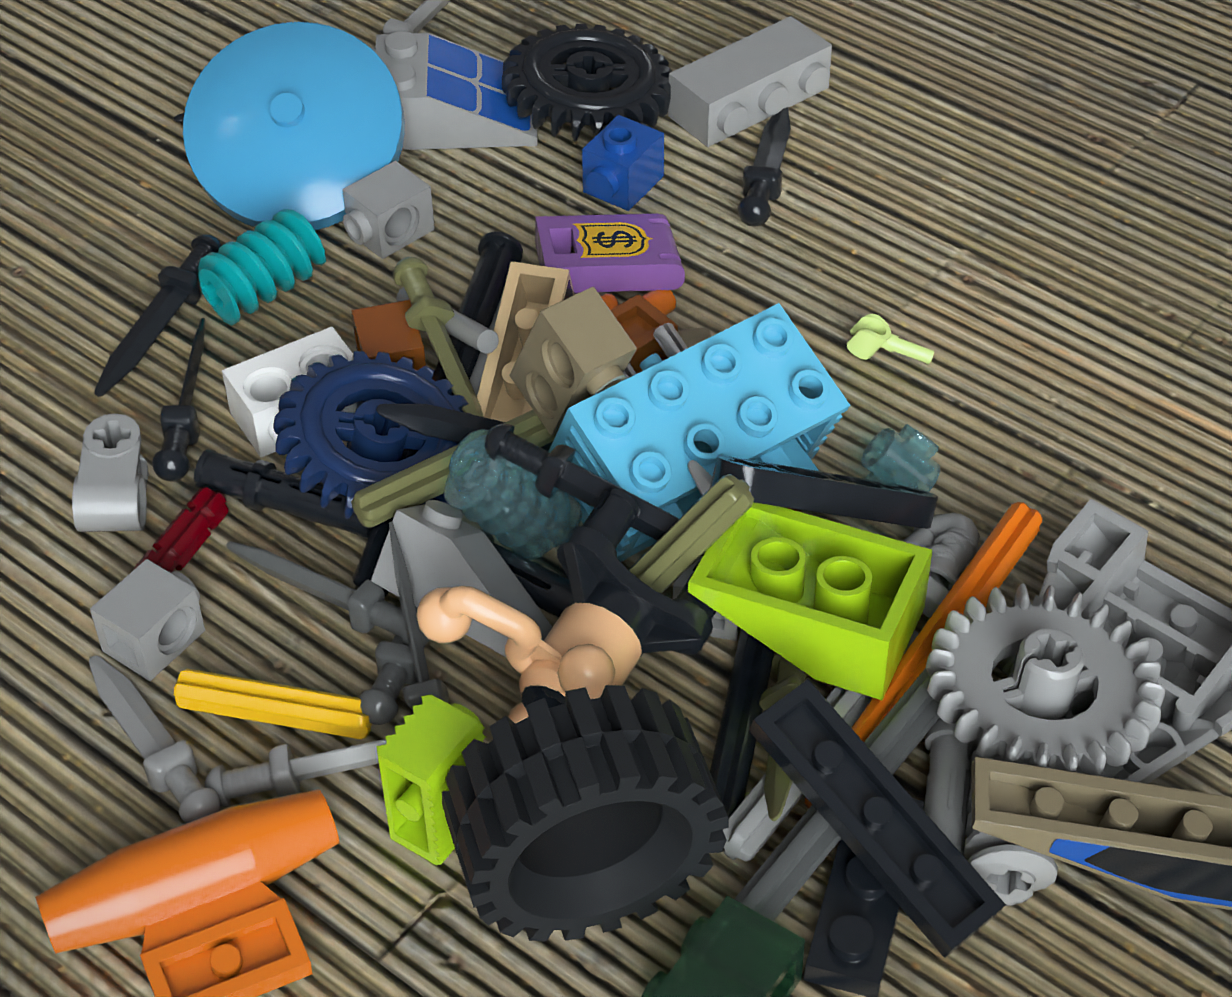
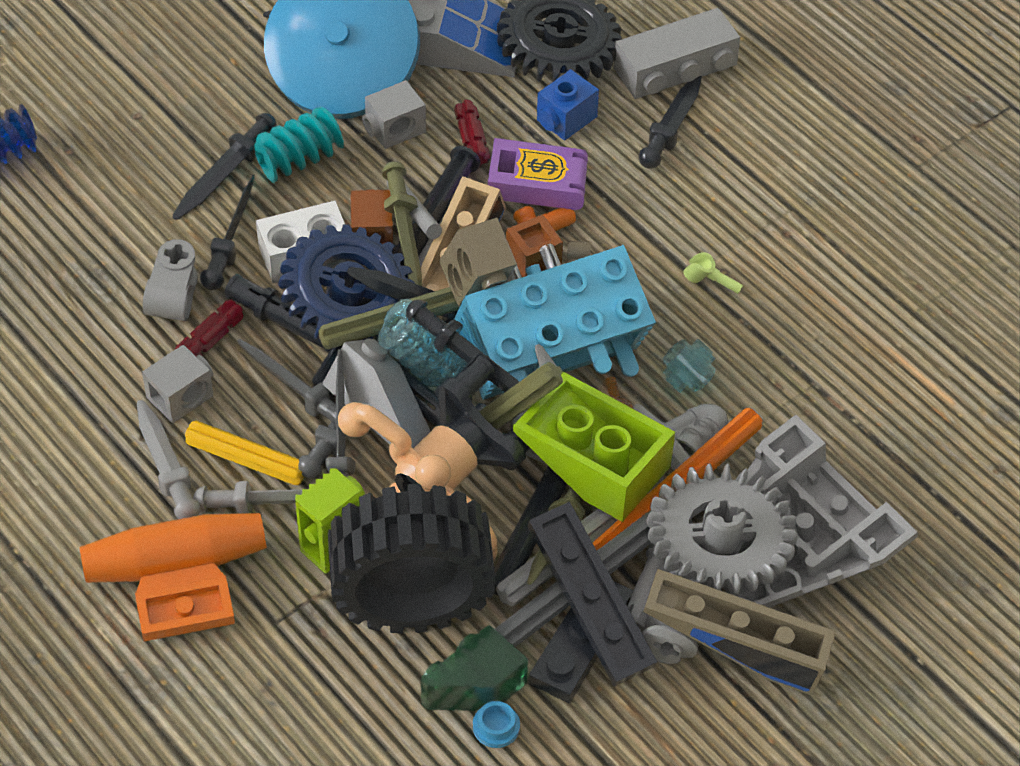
camera: 10 degrees right, 5 degrees up
(498, 212) = (471, 129): none -> dark red axle
(830, 492) = (625, 379): black beam -> none

